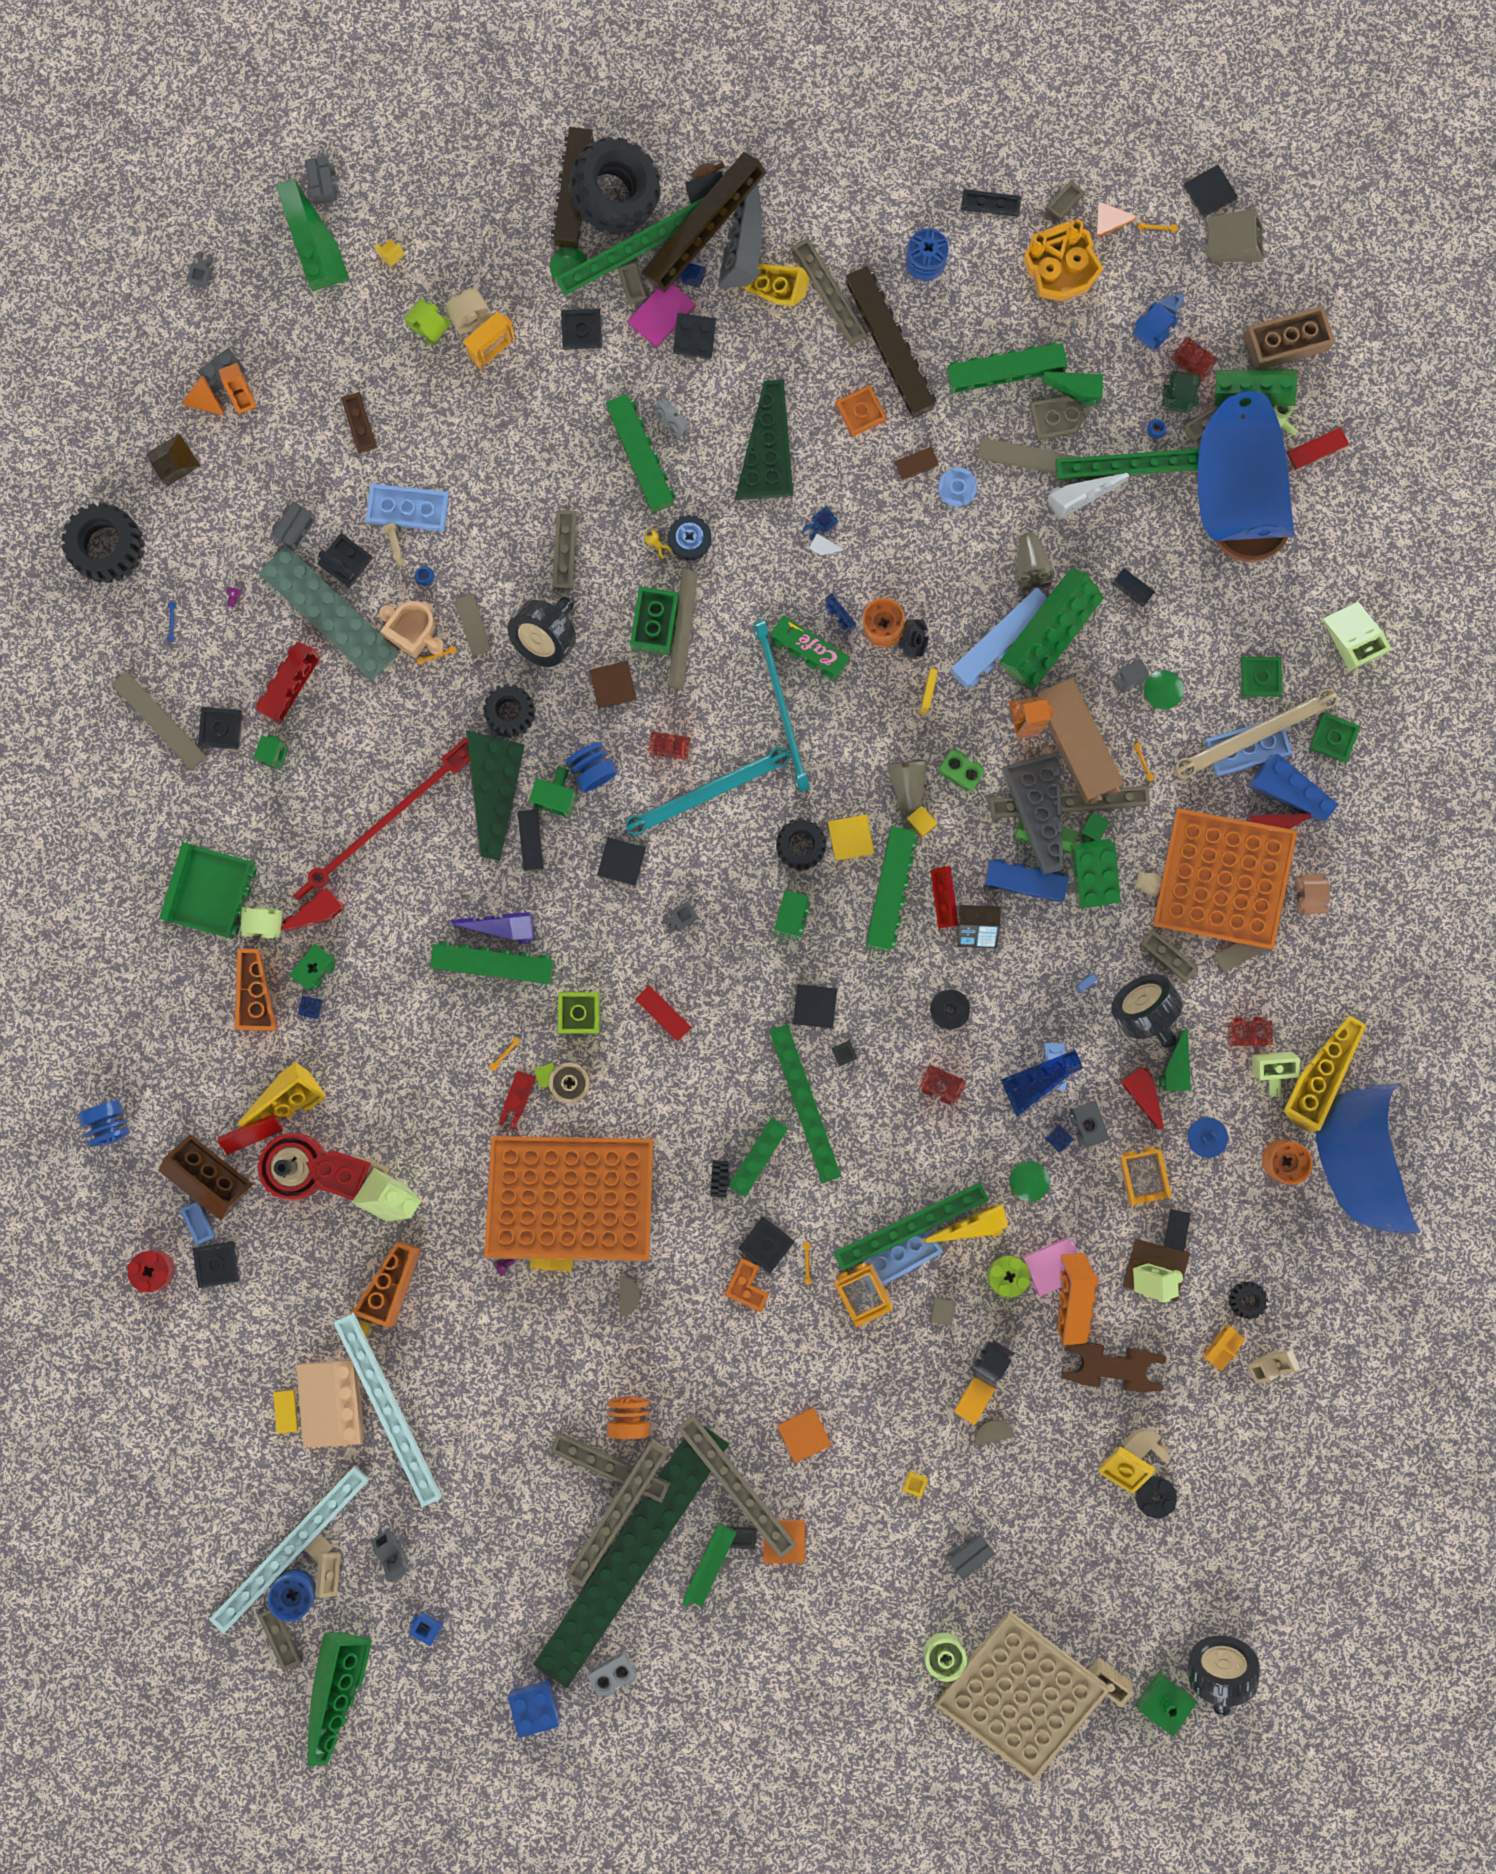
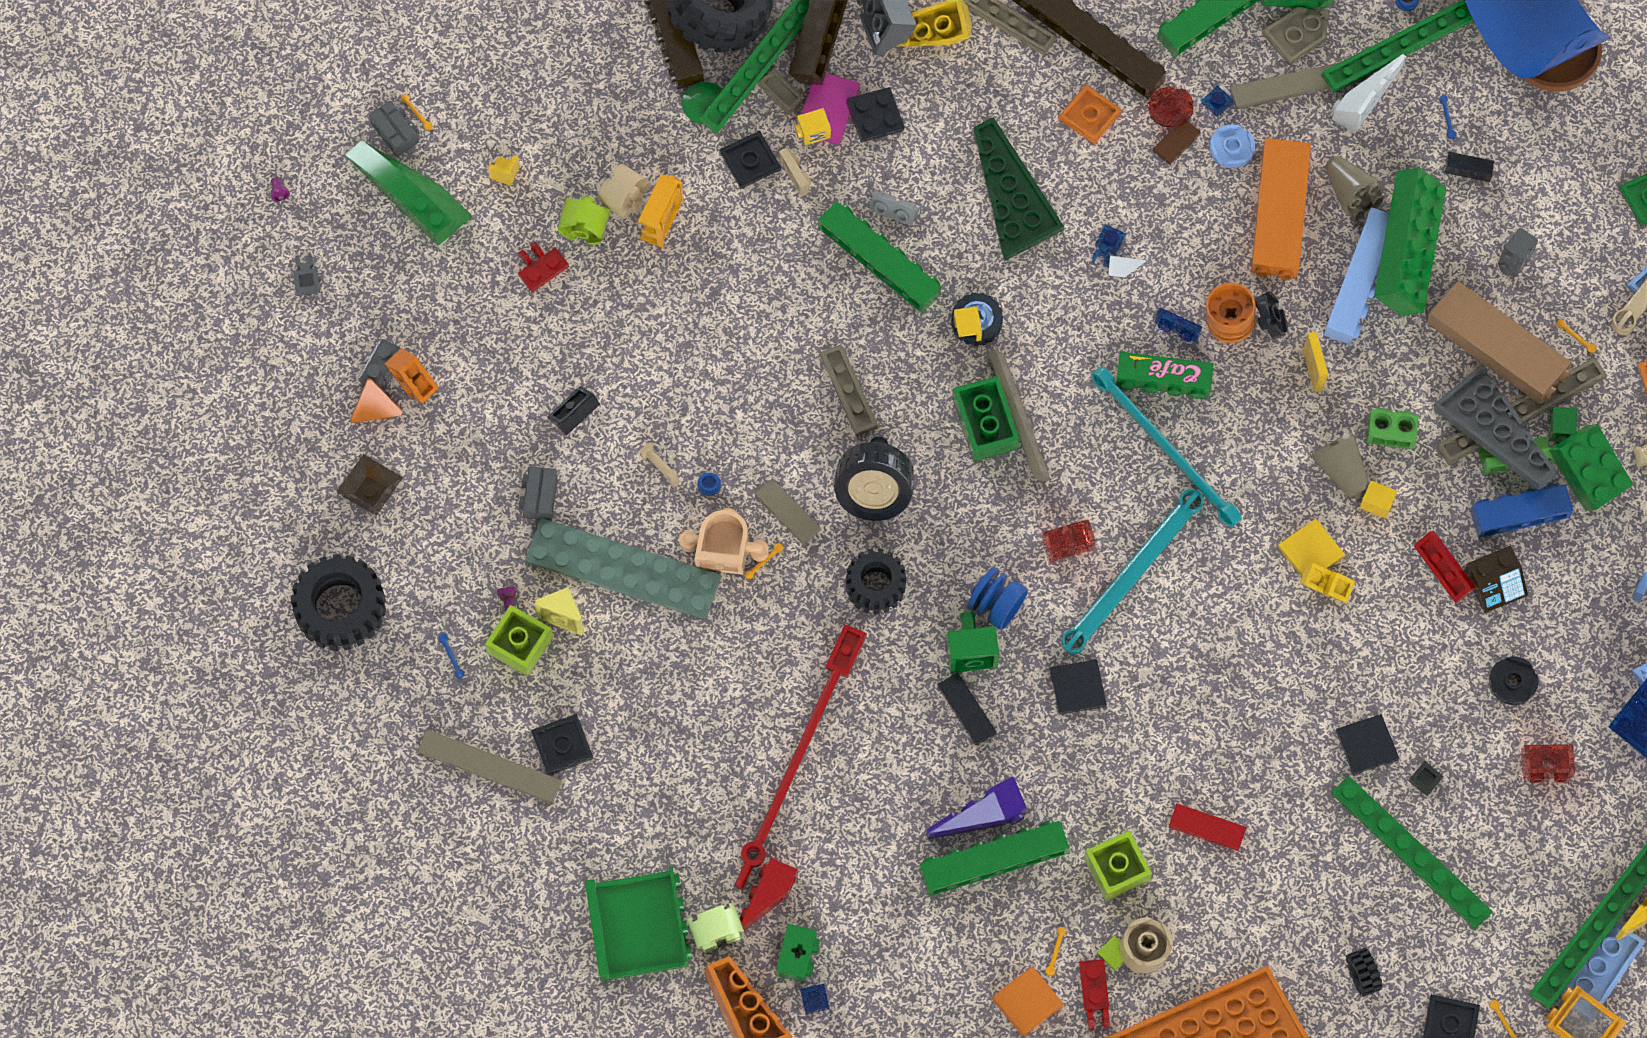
camera: 25 degrees left, 15 degrees down
(212, 191) = (278, 190): none -> magenta piece
(222, 634) = (519, 640): none -> lime brick
(264, 624) = (560, 611): none -> light yellow slope
(271, 751) = (637, 740): green brick -> none
(288, 682) = (616, 659): red wedge -> none
(344, 560) = (614, 505): black plate -> none
(350, 190) = (427, 125): none -> light orange hinge
(351, 470) = (574, 410): none -> black slope
(359, 422) = (557, 357): reddish brown tile -> none
(381, 346) = (543, 269): none -> red hinge
(407, 507) = (654, 421): light blue tile -> none
(464, 1082) = (1027, 1001): none -> orange slope
(493, 780) = (897, 666): dark green wing -> none
(609, 347) = (791, 165): none -> tan plate
(613, 684) = (972, 506): reddish brown tile -> none
(639, 324) = (813, 127): none -> yellow brick
(654, 540) = (940, 339): yellow arm -> none
(676, 539) = (968, 322): none -> yellow panel
(683, 916) = (1175, 713): dark grey plate -> none
(693, 275) = (843, 55): clear blue plate -> none
(758, 1157) = (1393, 929): green brick -> none
(790, 915) = (1295, 653): green brick -> none
(804, 827) = (1257, 596): black tyre -> none
(849, 868) = (1327, 582): none -> yellow slope
(890, 889) = (1385, 582): green brick -> none
(925, 433) = (1170, 106): none -> clear red tile
(965, 445) = (1217, 101): none -> clear blue plate
(967, 555) = (1280, 208): none -> orange brick
(1030, 715) = (1437, 336): orange wedge -> none
(1133, 555) = (1451, 133): none -> blue hinge
(1163, 689) = (1557, 254): green dish -> none

